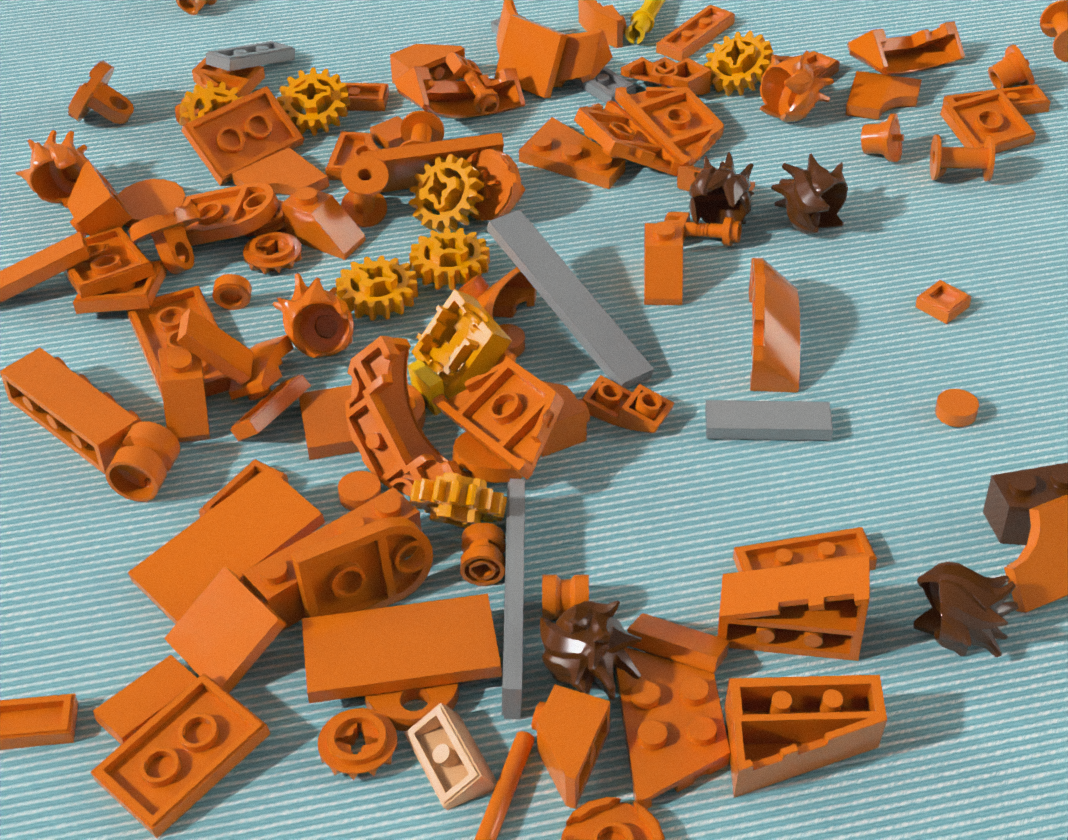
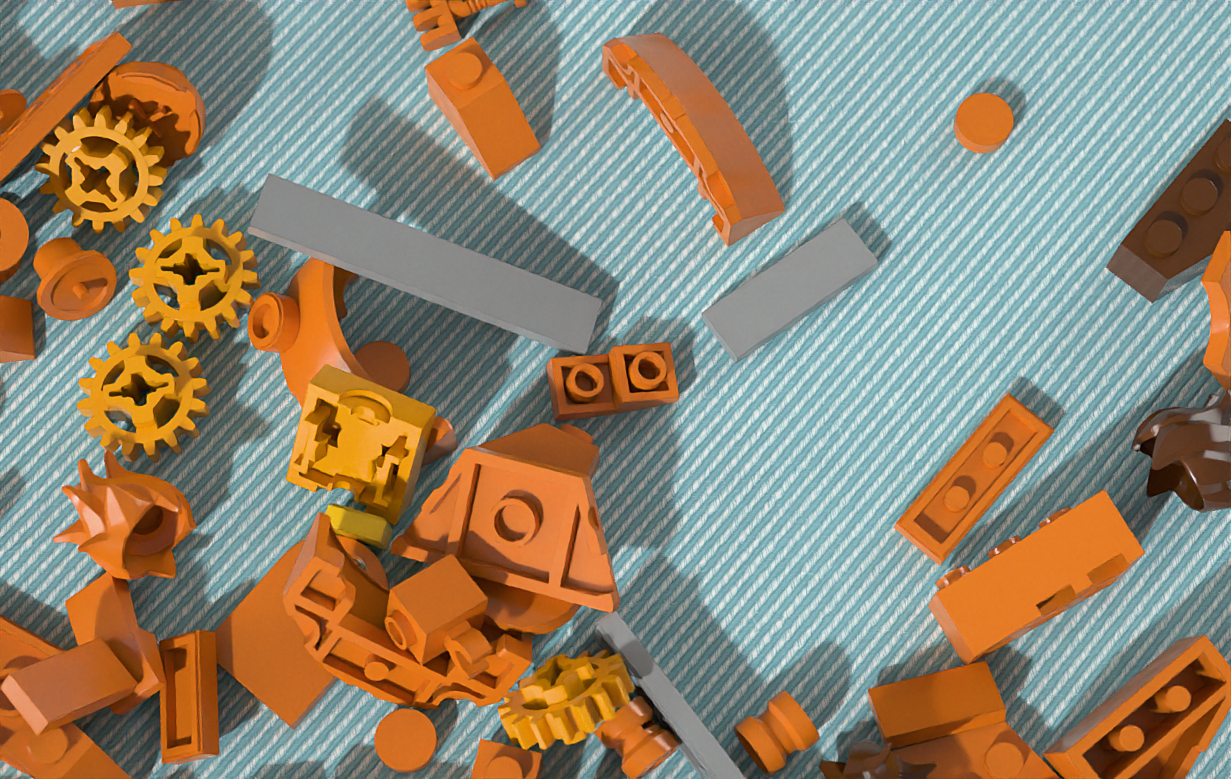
camera: 40 degrees left, 30 degrees up
(390, 231) = (73, 280): none -> orange piece
(426, 426) = (440, 613): none -> orange brick

